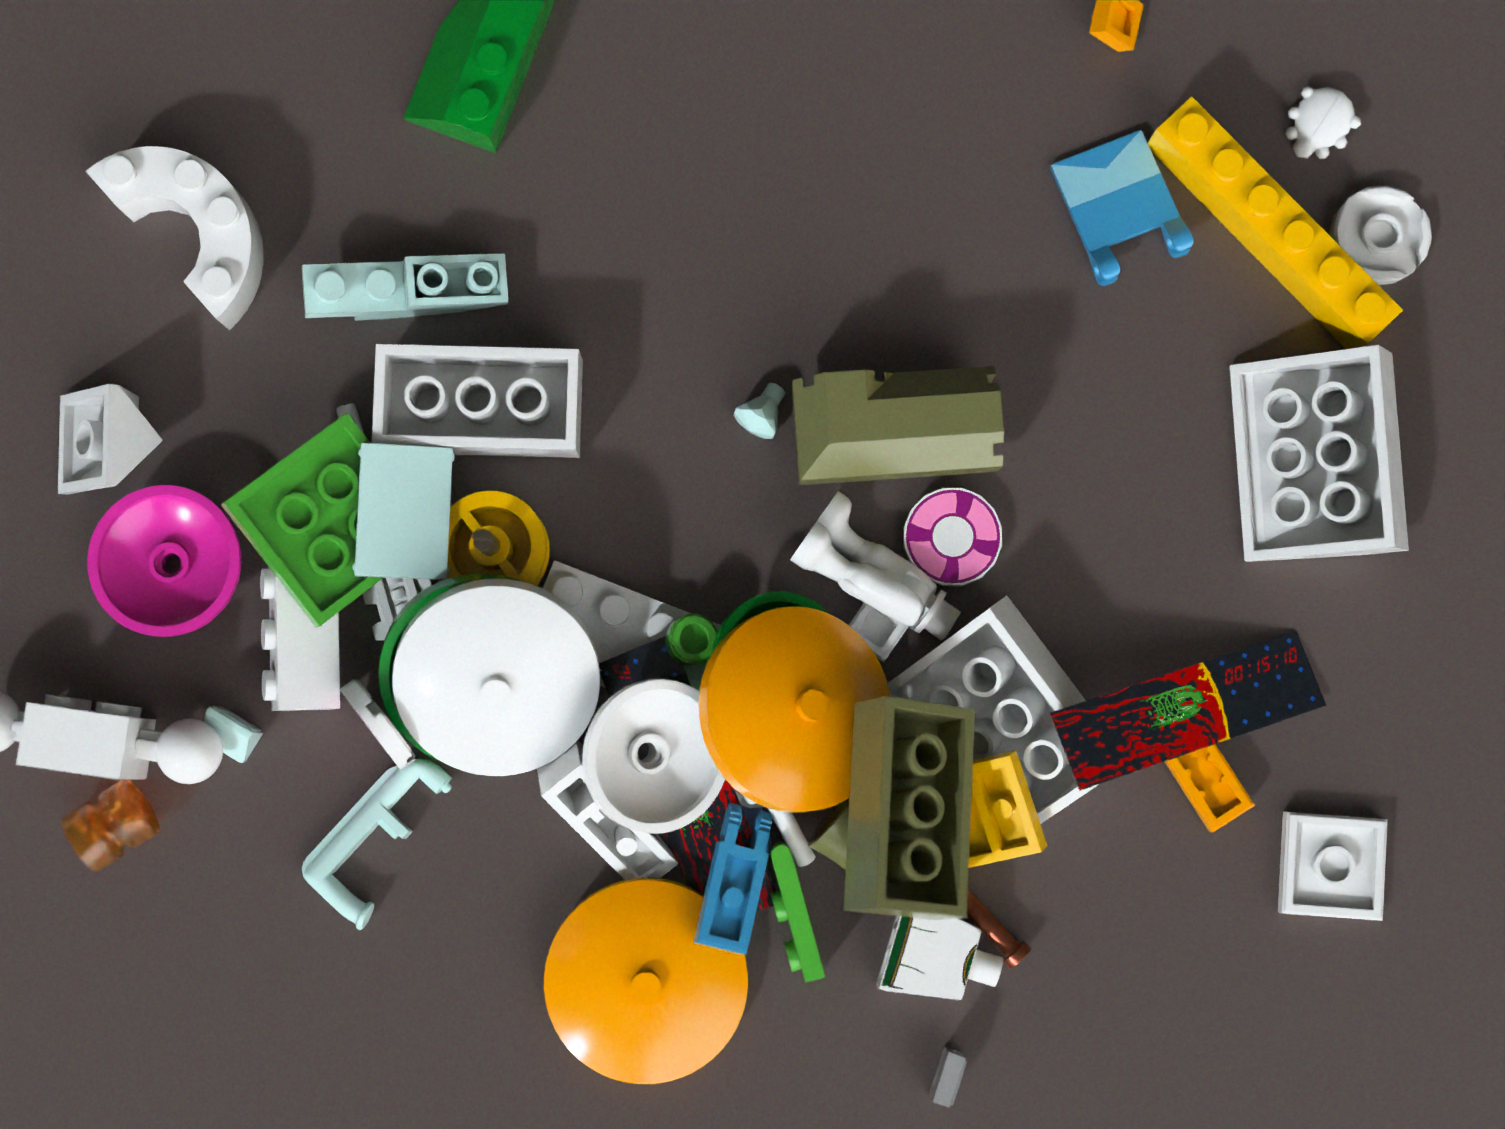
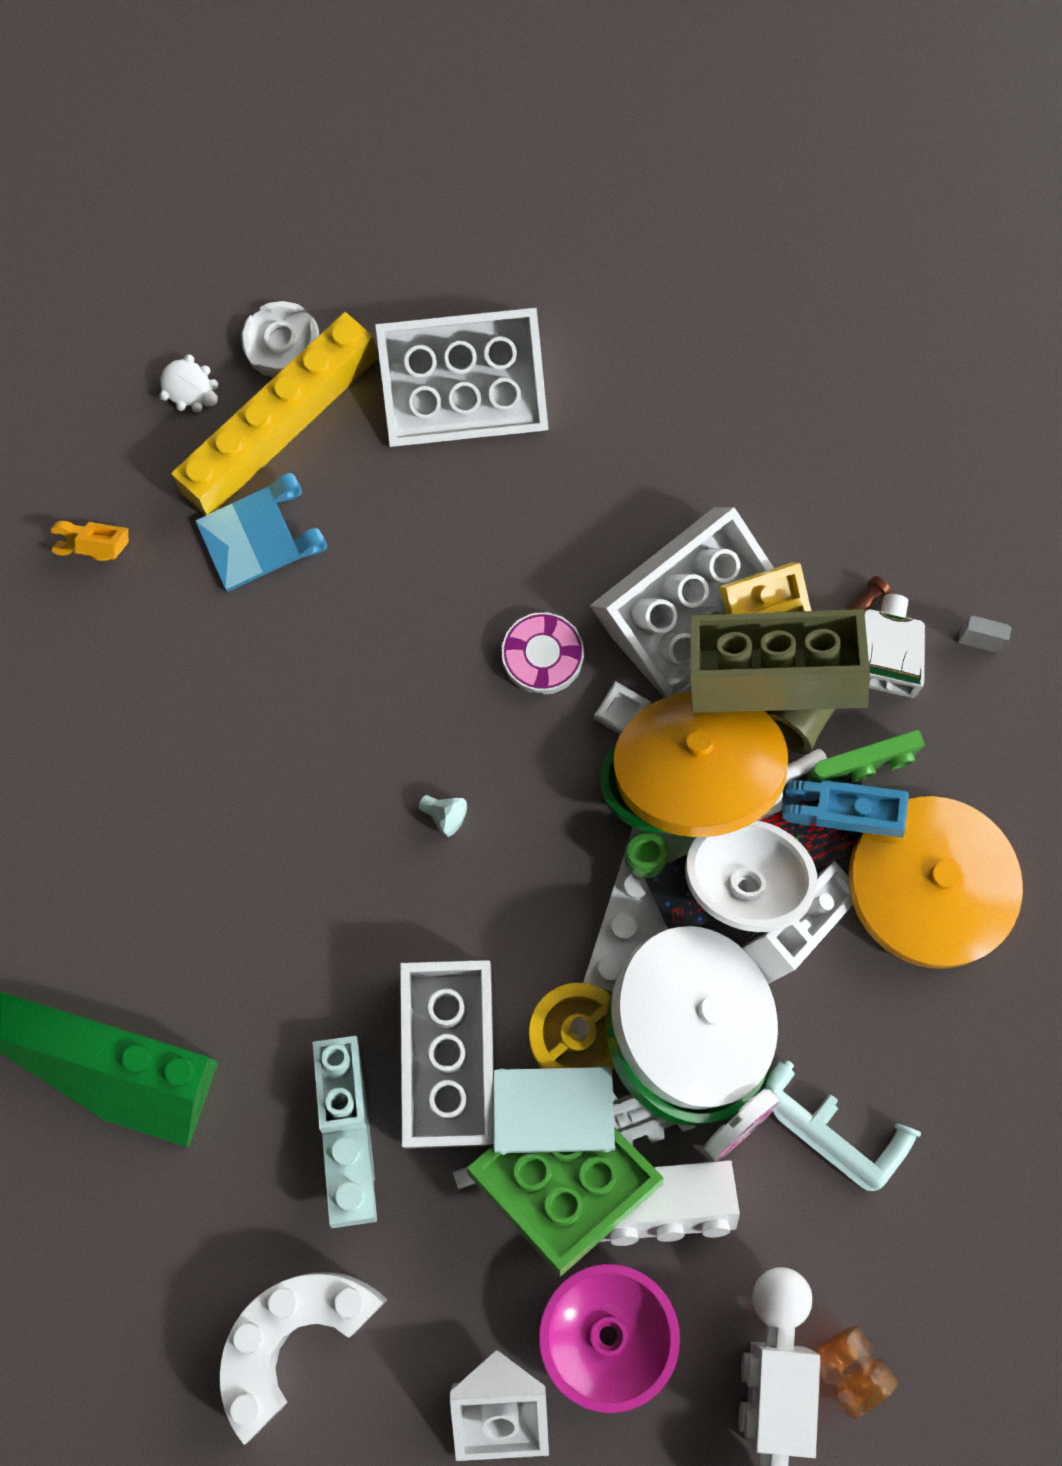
camera: 90 degrees left, 10 degrees down
(236, 733) = (756, 1261): light aqua slope -> none
(874, 572) = (576, 712): white piece -> none
(897, 426) = (454, 693): olive brick -> none
(1187, 710) = (675, 462): black sticker -> none
(1210, 786) = (722, 451): light orange plate -> none
(1332, 866) = (783, 359): white tile -> none

